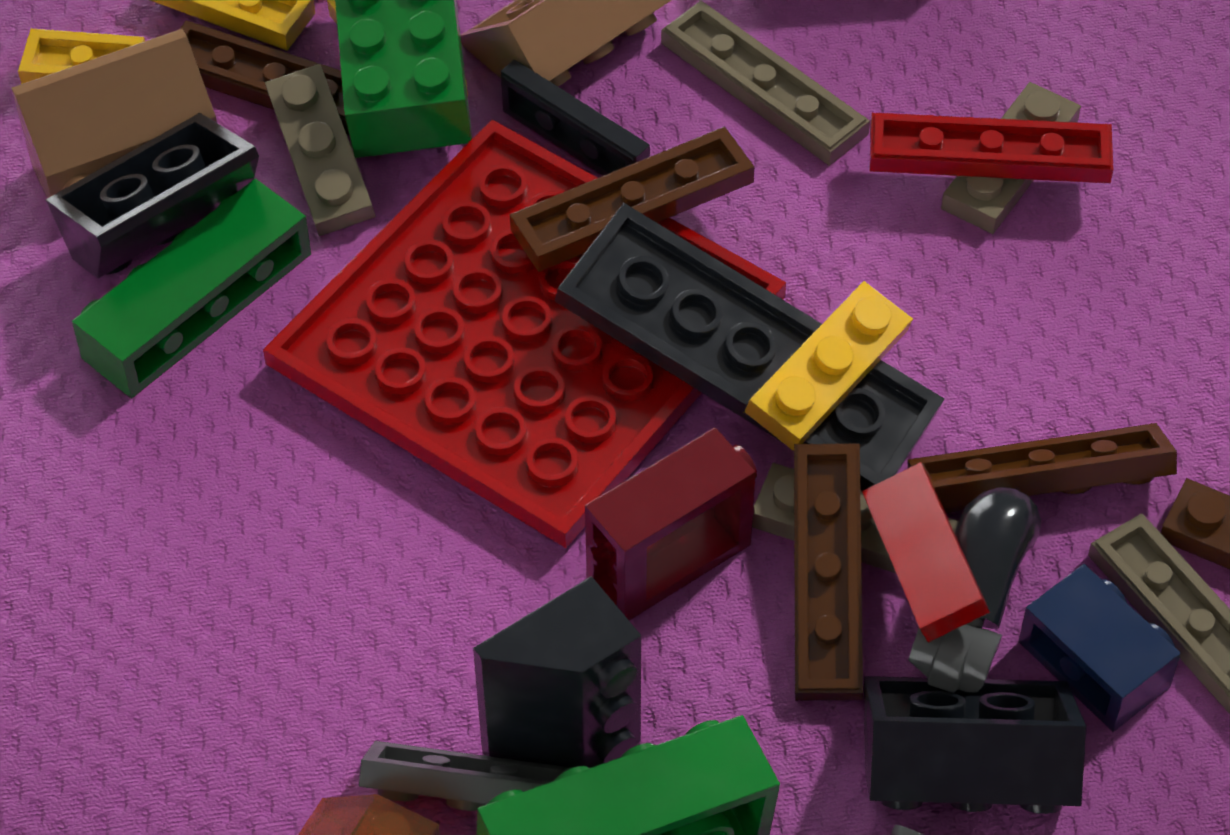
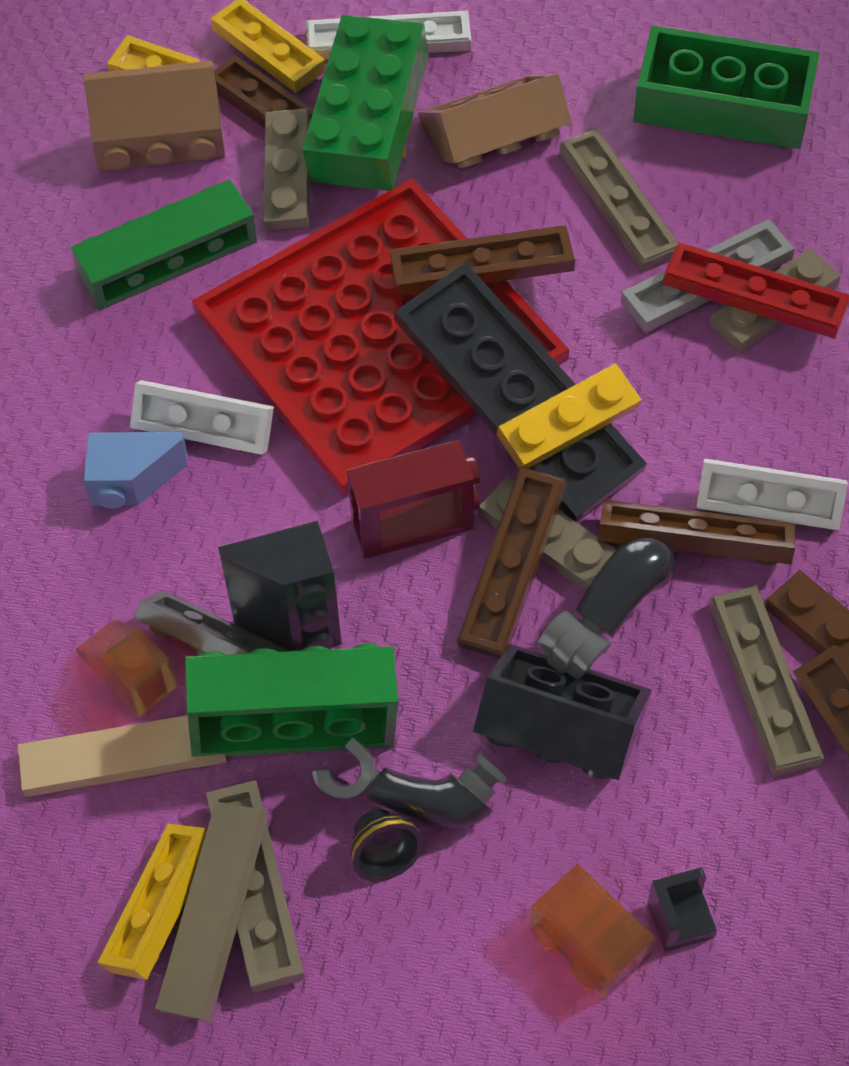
camera: 20 degrees right, 5 degrees up
(151, 194) = (156, 172): black slope -> none
(267, 587) = (131, 465): none -> medium blue slope
(336, 498) = (202, 417): none -> white plate
(568, 121) = (464, 192): black tile -> none
(869, 198) = (656, 304): none -> light grey plate
(925, 552) = (577, 569): red tile -> none
(1099, 646) = (683, 671): dark blue brick -> none
(1113, 394) = (772, 494): none -> white plate

